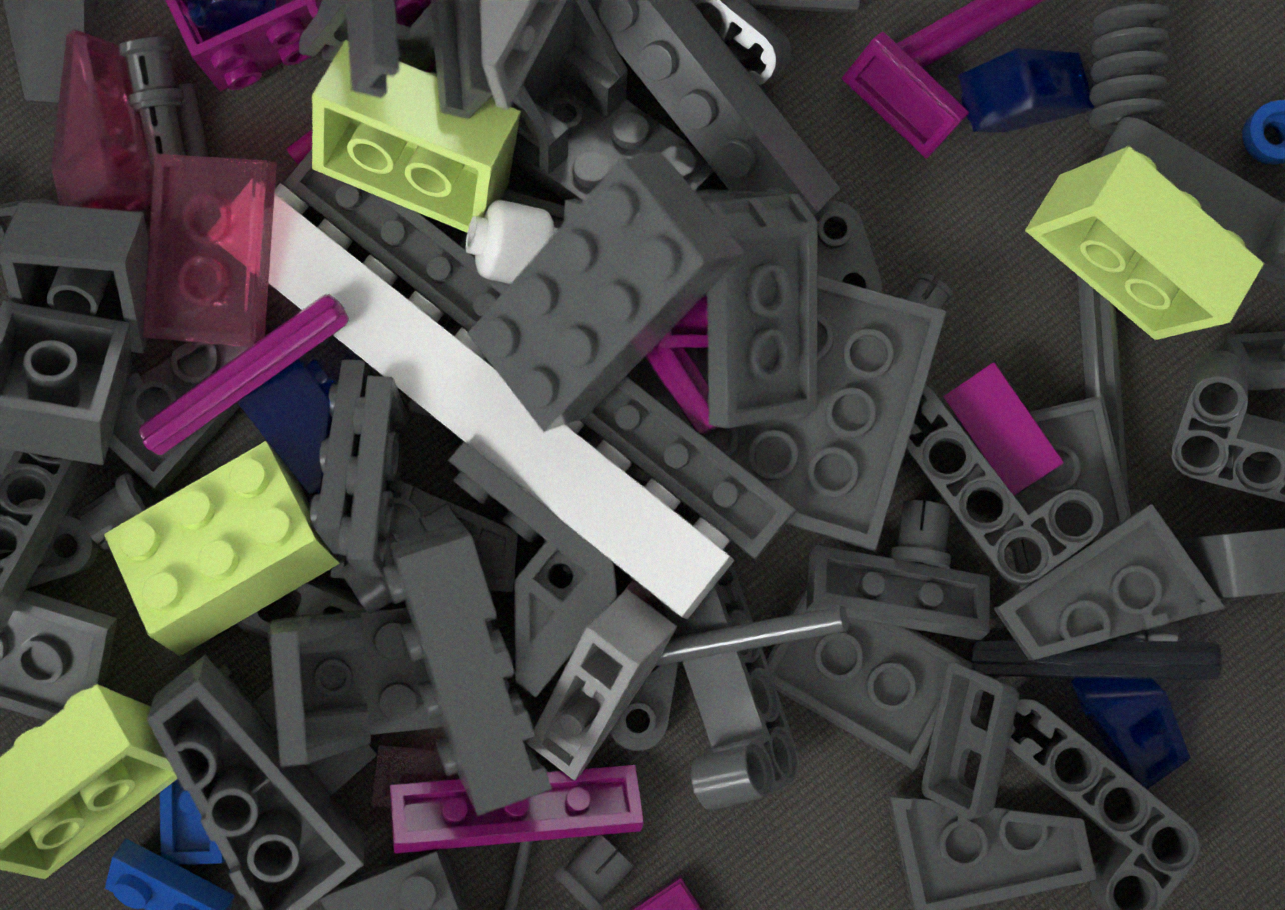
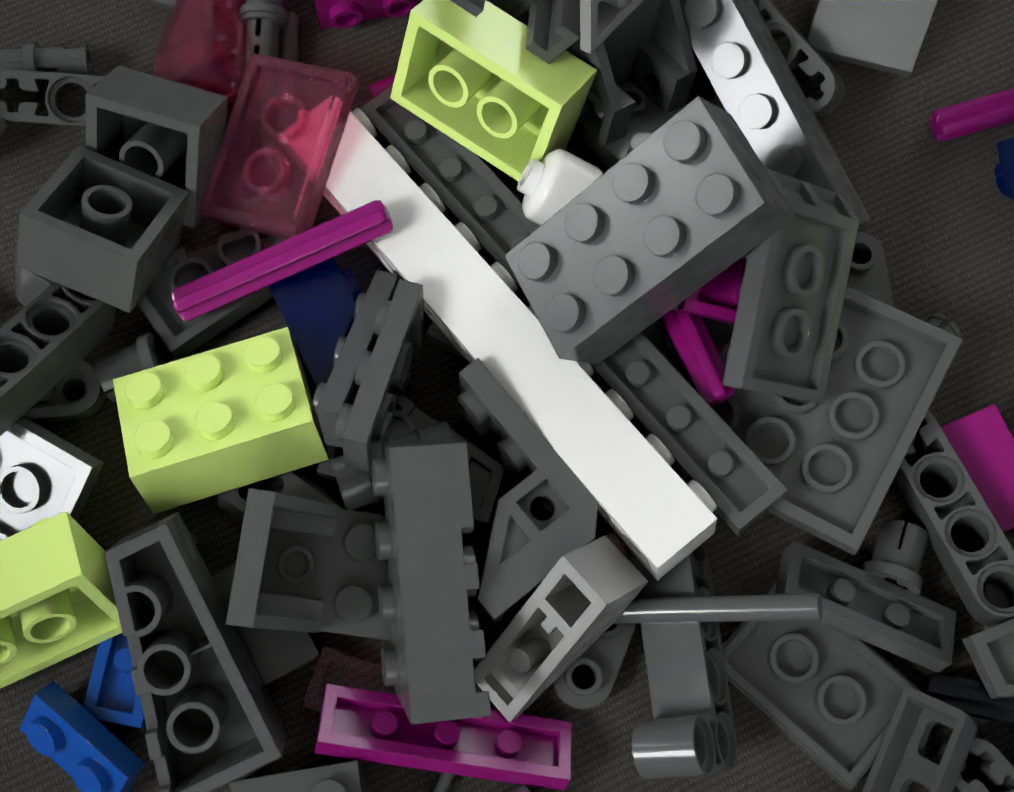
camera: 15 degrees right, 10 degrees down
(904, 95) = (943, 152): magenta tile -> none

